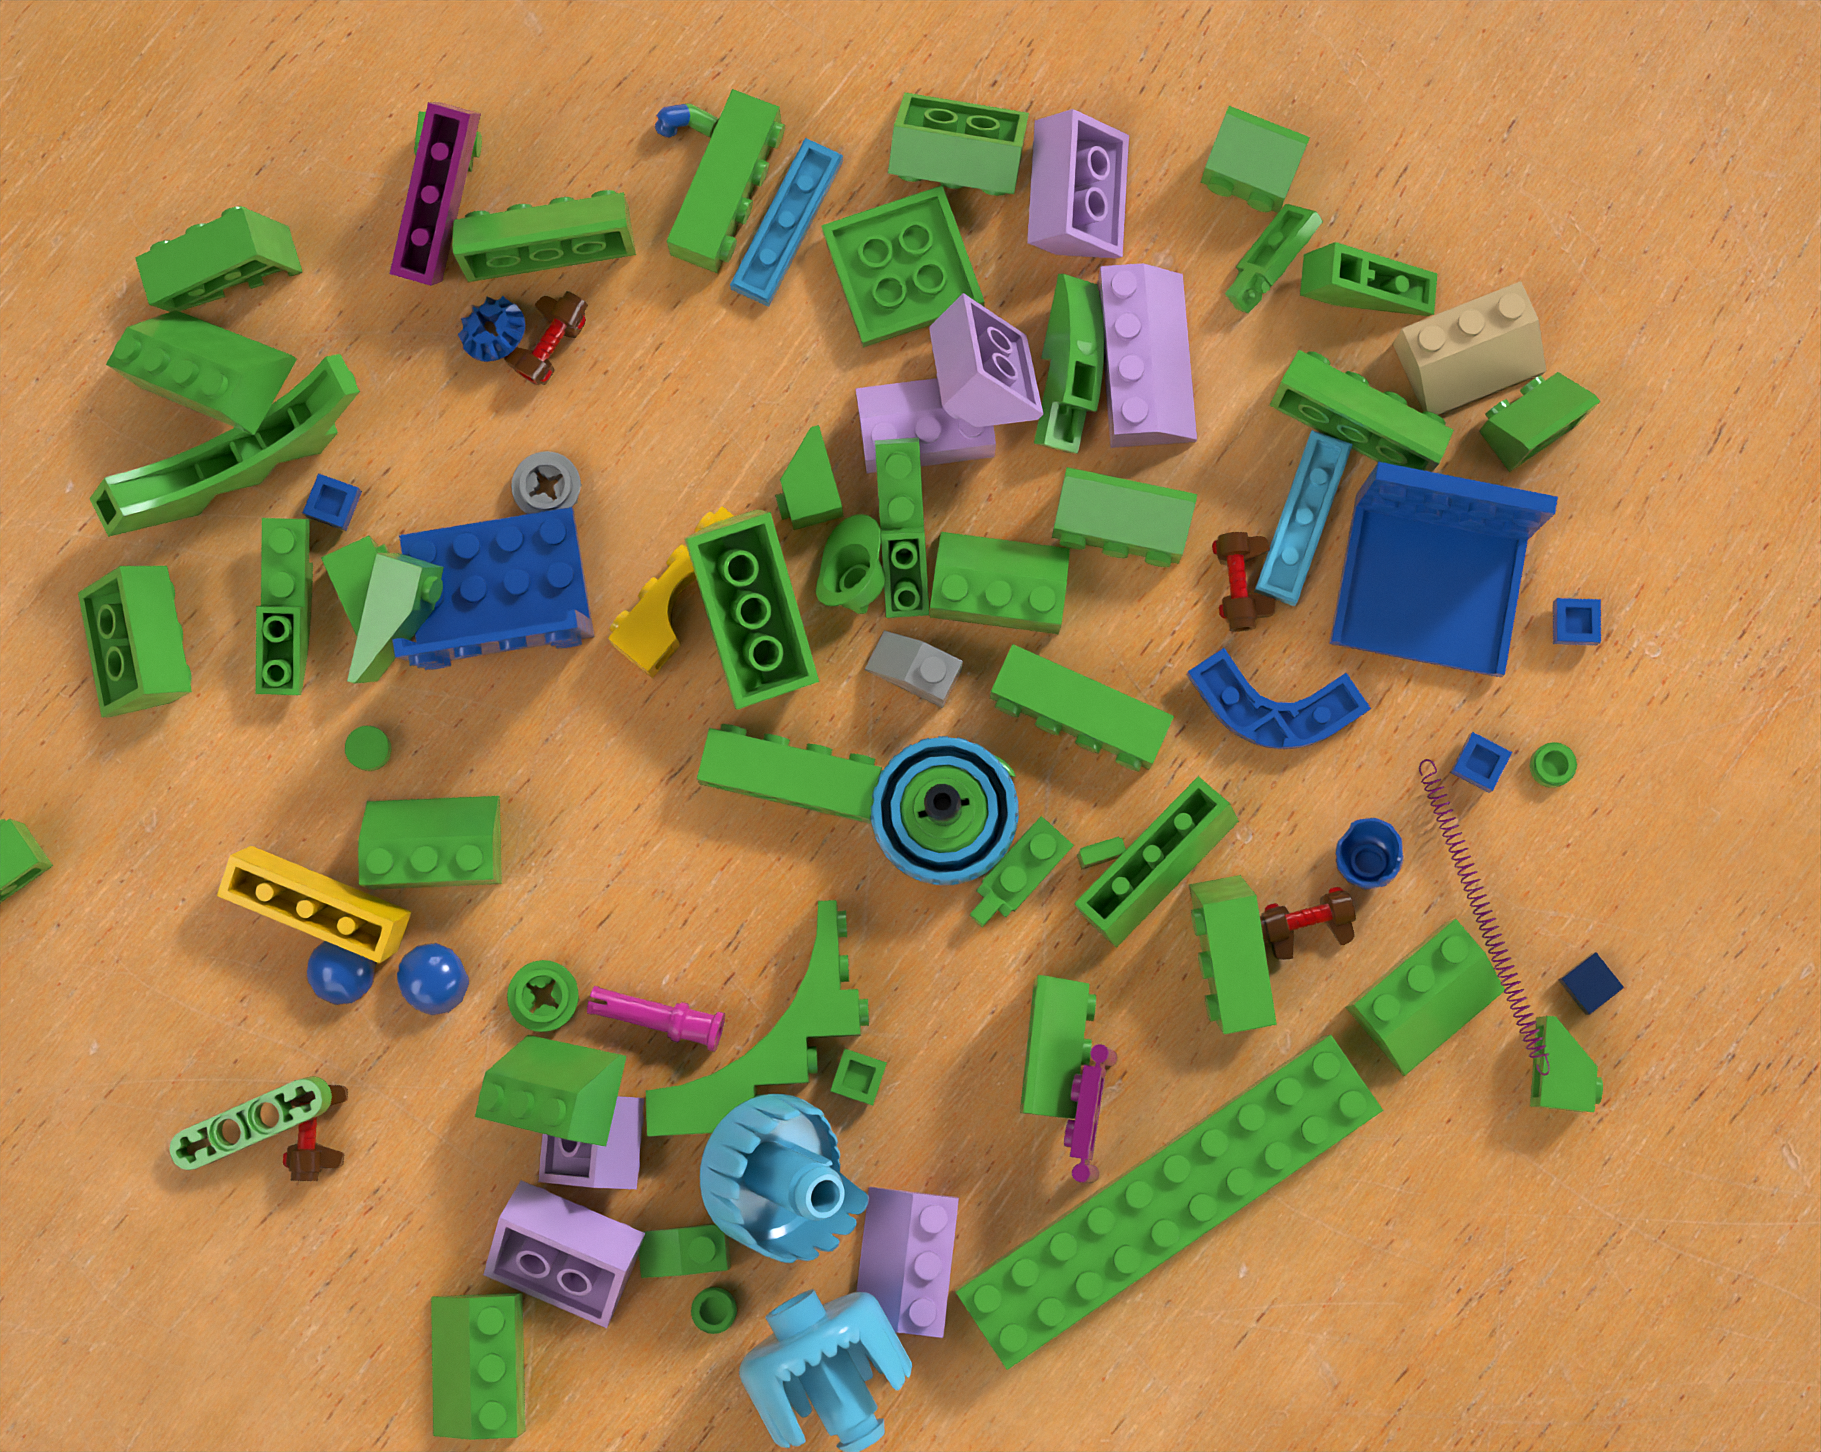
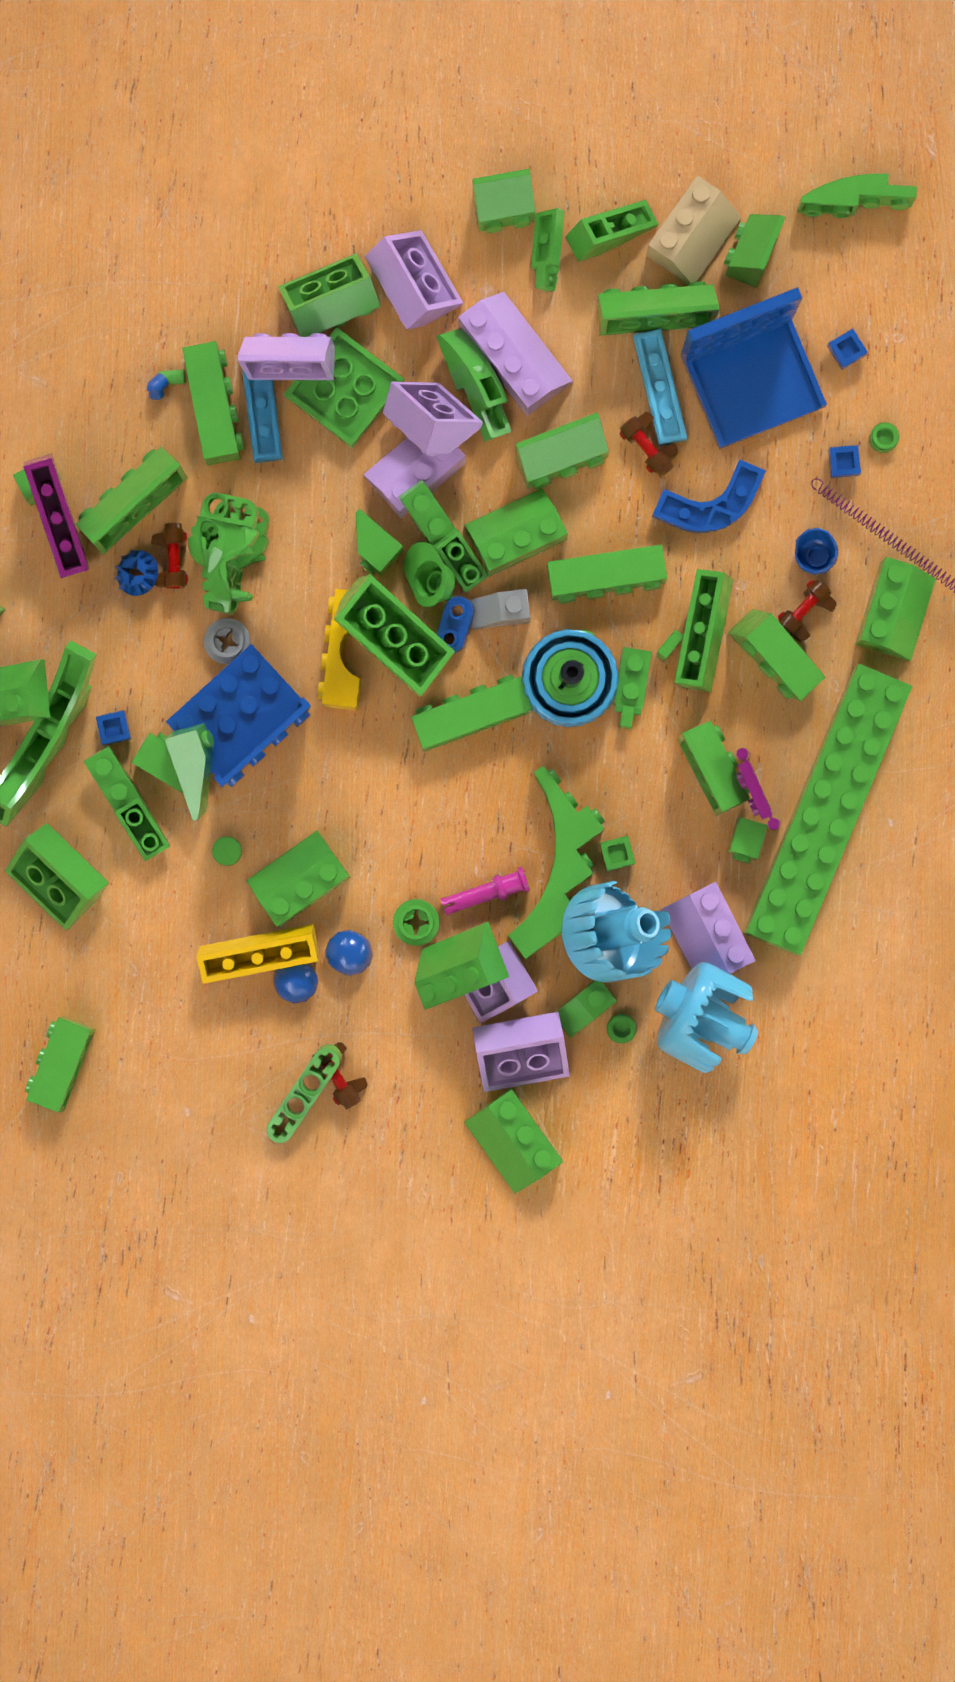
camera: 30 degrees left, 5 degrees up
(620, 370) = (237, 546): none -> bright green animal
(846, 652) = (459, 625): none -> blue plate
(853, 181) = (287, 357): none -> lavender slope
(1037, 1170) = (747, 840): none -> bright green brick
(1698, 425) = (845, 194): none -> bright green slope

